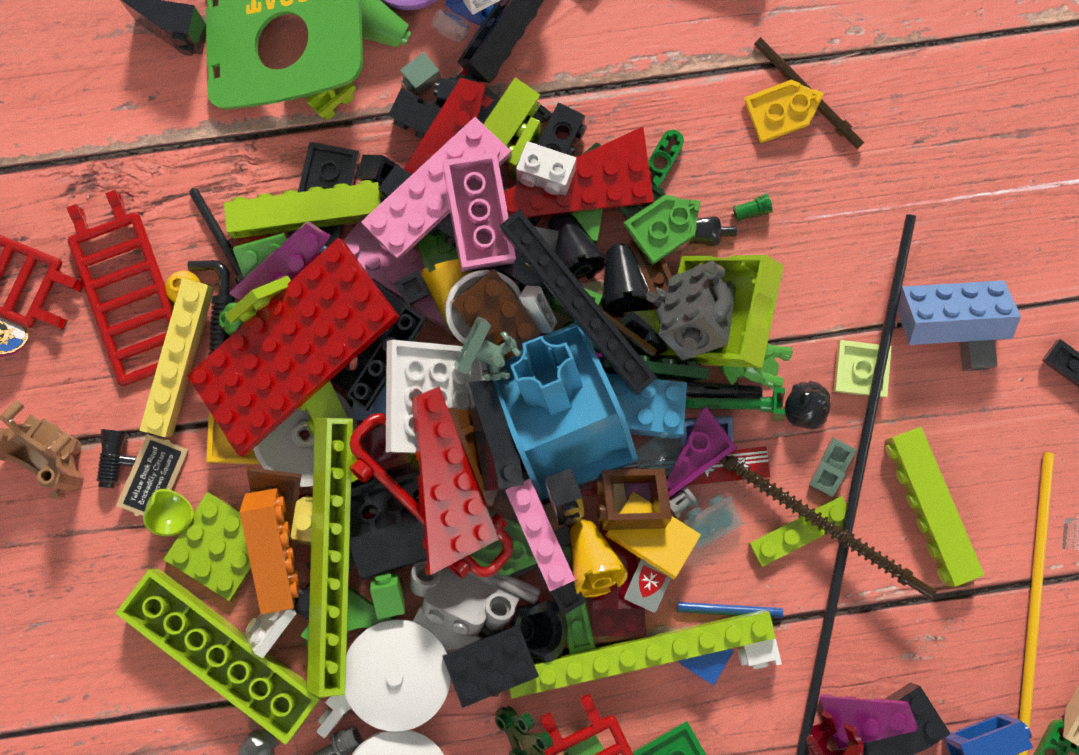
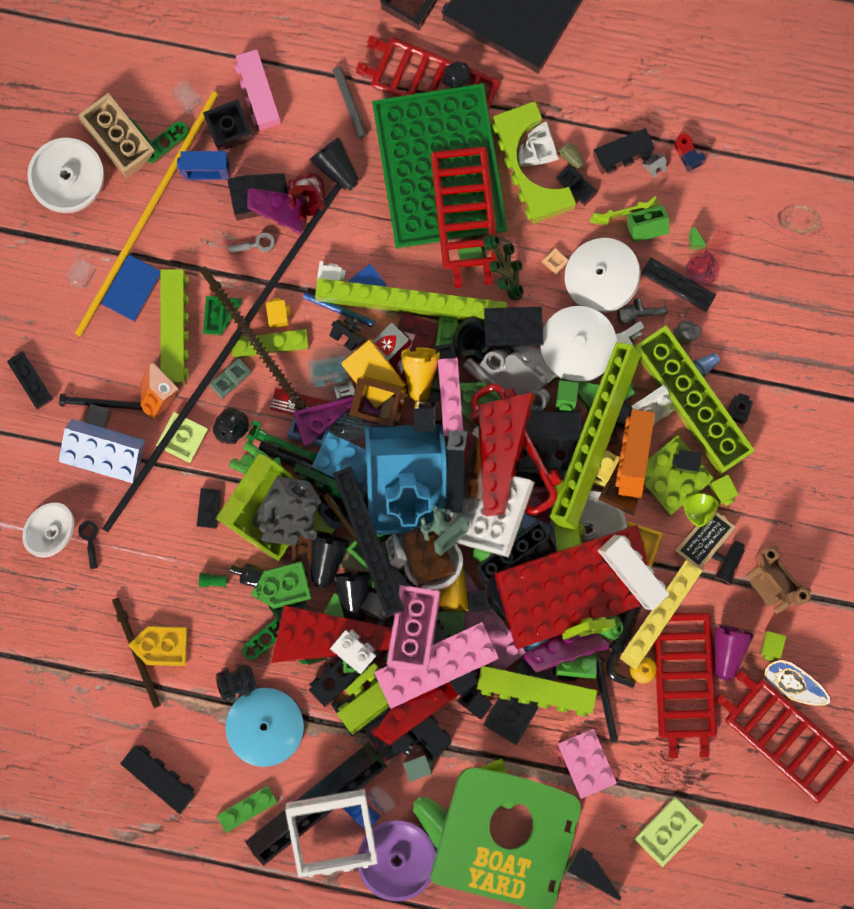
camera: 160 degrees left, 0 degrees up
(27, 371) = (772, 646): none -> lime brick
(77, 347) = (730, 650): none -> magenta cone
(94, 109) = (668, 831): none -> yellowish green tile
(145, 548) = (724, 490): none -> lime brick
(164, 665) = (738, 415): none -> black brick
(202, 567) = (687, 461): none -> black brick
(218, 153) = (587, 763): none -> bright pink plate
(218, 713) = (706, 363): none -> medium blue cone
(222, 390) = (633, 572): none -> white brick
(615, 81) = (283, 731): none -> medium azure dish
(677, 96) = (235, 682): none -> black piece
(705, 585) = (340, 328): none -> black hips
(794, 295) = (208, 508): none -> black plate
(807, 574) = (277, 313): none -> yellow brick
(881, 652) = (247, 246): none -> light grey piece
(885, 536) = (215, 317): none -> green wing
(916, 196) = (91, 548): none -> black piece
(919, 410) = (156, 391): none -> orange slope
(979, 193) = (48, 530): none -> white dish
(1008, 539) = (131, 288): none -> blue tile
(1028, 363) = (63, 400): none -> black bar

